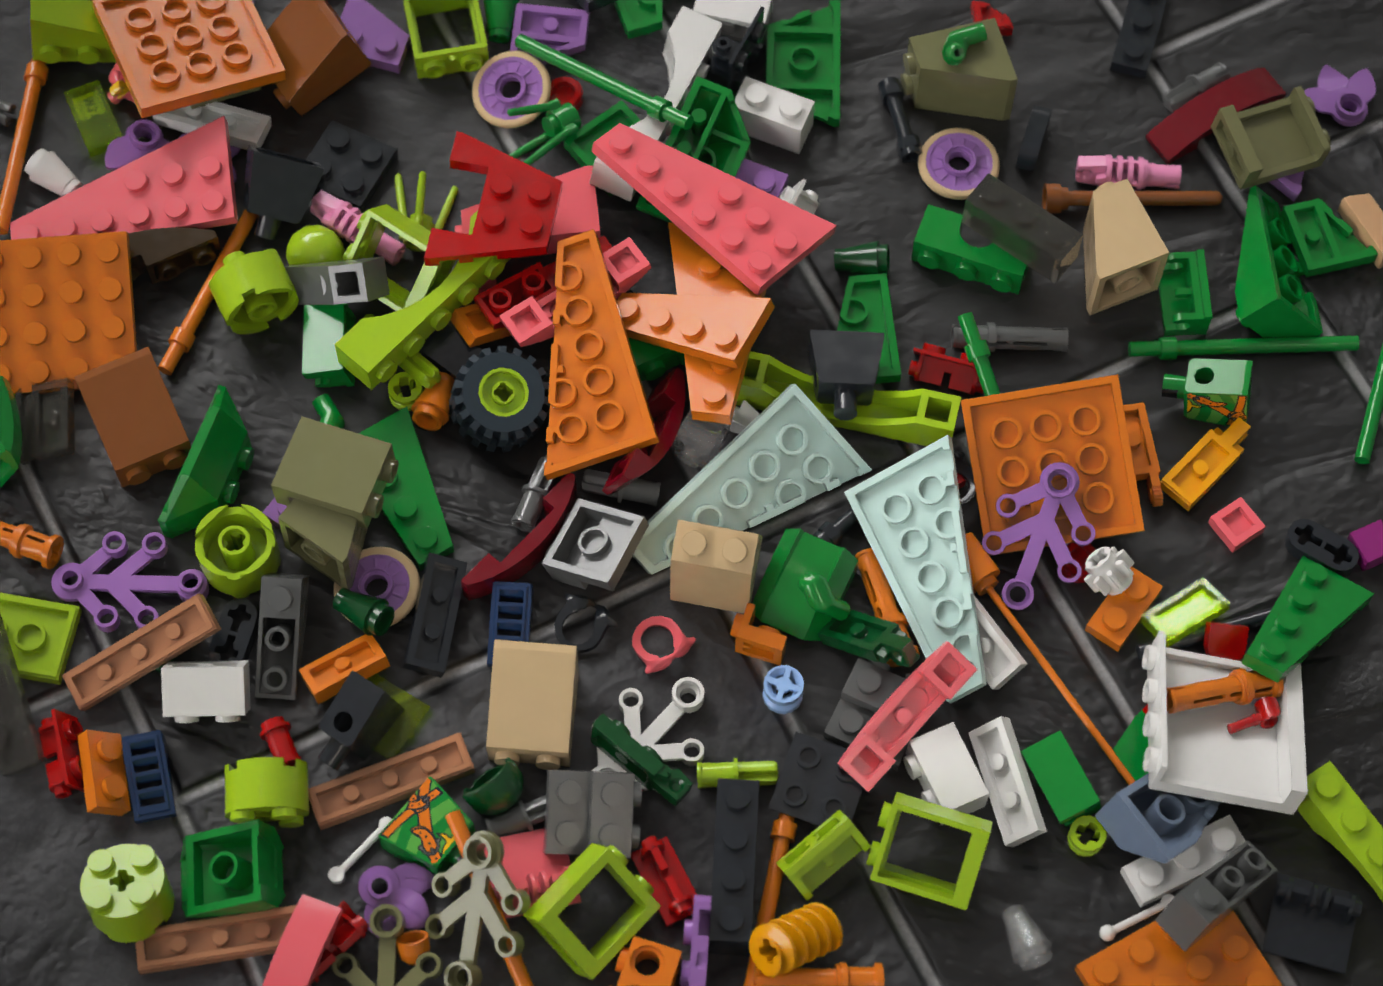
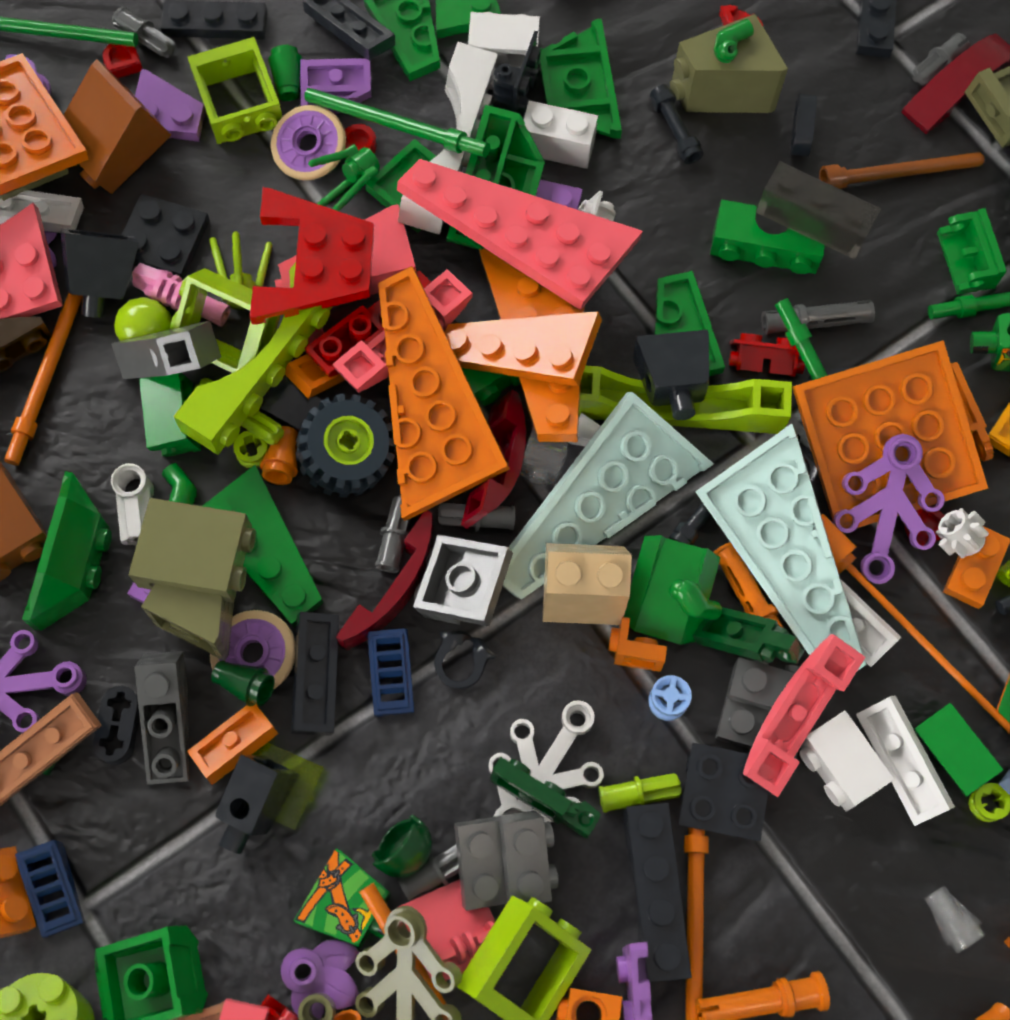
camera: 10 degrees left, 5 degrees up
(205, 690) = (95, 789): white brick -> none
(253, 290) = (86, 371): lime brick -> none
(256, 547) = (101, 615): lime brick -> none
(267, 791) = (172, 890): lime brick -> none
(278, 427) = (131, 505): none -> white piece
(279, 739) = (179, 831): red pin -> none
(337, 874) = (258, 960): white hinge -> none
(389, 781) = (295, 853): nougat tile -> none
(532, 703) = (427, 755): tan slope -> none
(666, 875) = (591, 915): red hinge -> none
(680, 642) = (560, 663): coral piece -> none
(795, 939) = (733, 966): light orange piece -> none
(822, 853) = (740, 865): lime hinge -> none
(863, 259) = (667, 260): dark green cone -> none
(918, 883) = (879, 885): lime window -> none
(954, 143) = (732, 176): medium lavender wheel -> none
(1120, 248) = (913, 216): tan slope -> none
(1140, 173) = (894, 146): bright pink hinge -> none

